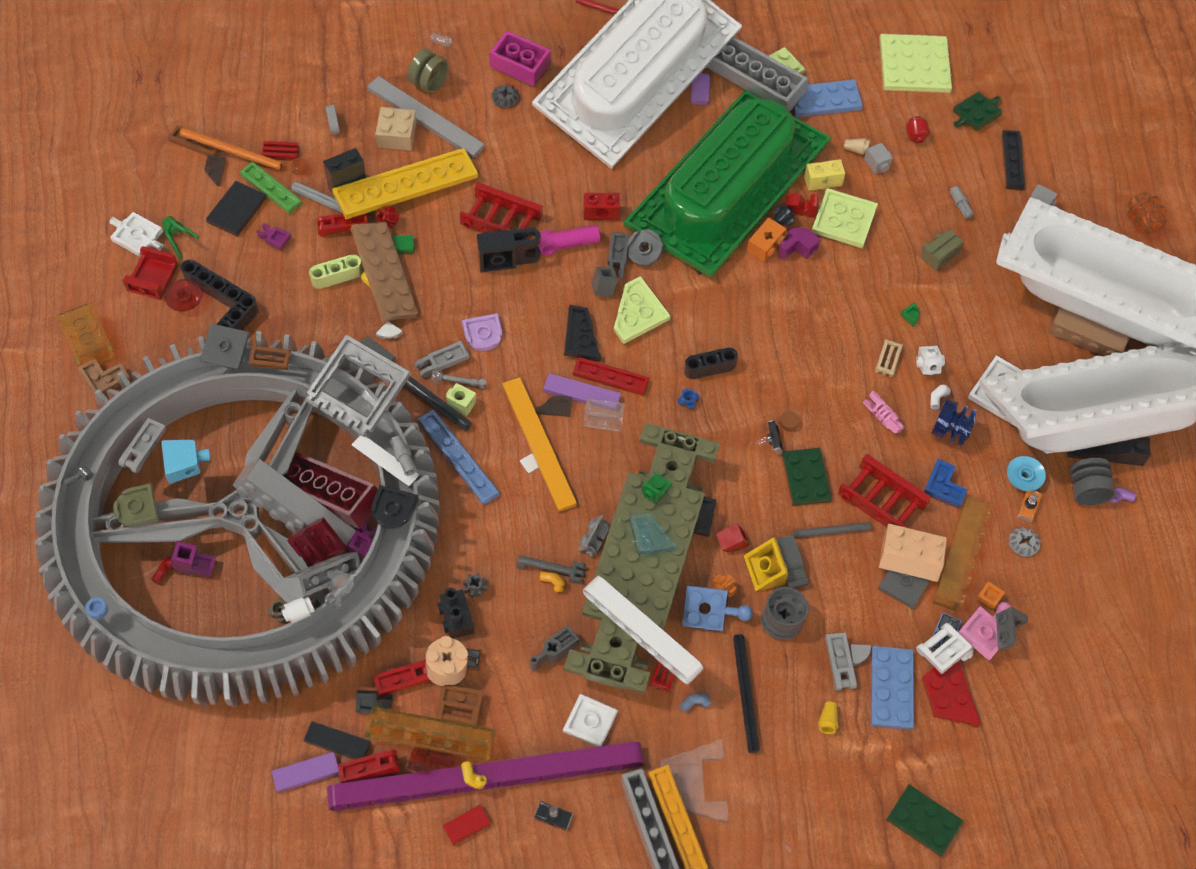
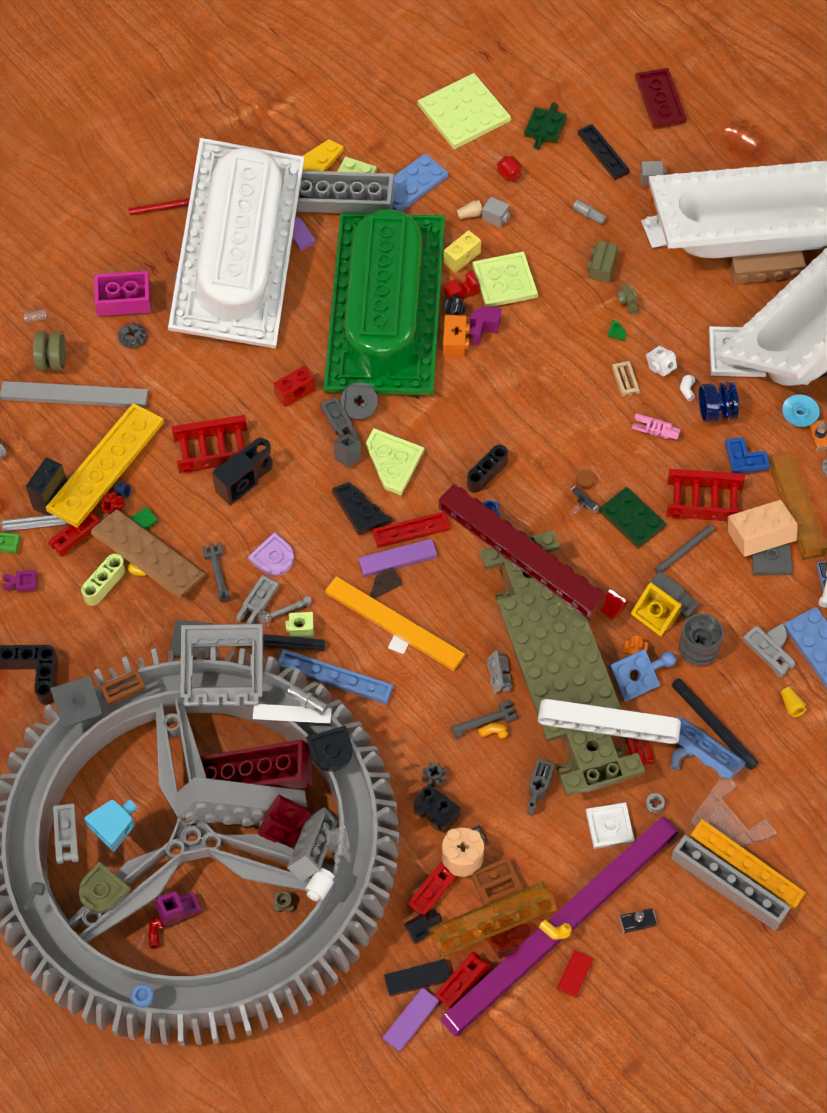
camera: 30 degrees left, 0 degrees up
(361, 542) = (316, 798): magenta plate -> none
(388, 331) = (191, 604): white tile -> none
(396, 128) = (58, 420): tan brick -> none
(405, 211) = (123, 489): none -> dark blue plate
(419, 339) = (223, 593): none -> dark grey hinge
(553, 241) = (288, 430): dark pink piece -> none
(603, 414) = (431, 565): clear hinge -> none
(643, 720) = (651, 797): none -> light grey bush
(648, 535) = (556, 641): clear light blue wing -> none
(656, 488) = (532, 598): green bracket -> none
(676, 445) = (522, 552): none -> dark red brick
(719, 708) = (709, 750): none -> medium blue plate
(764, 37) = (322, 156): none -> yellow wing
(941, 290) = (629, 297): none -> olive plate
(1098, 141) = (660, 98): none -> dark red plate

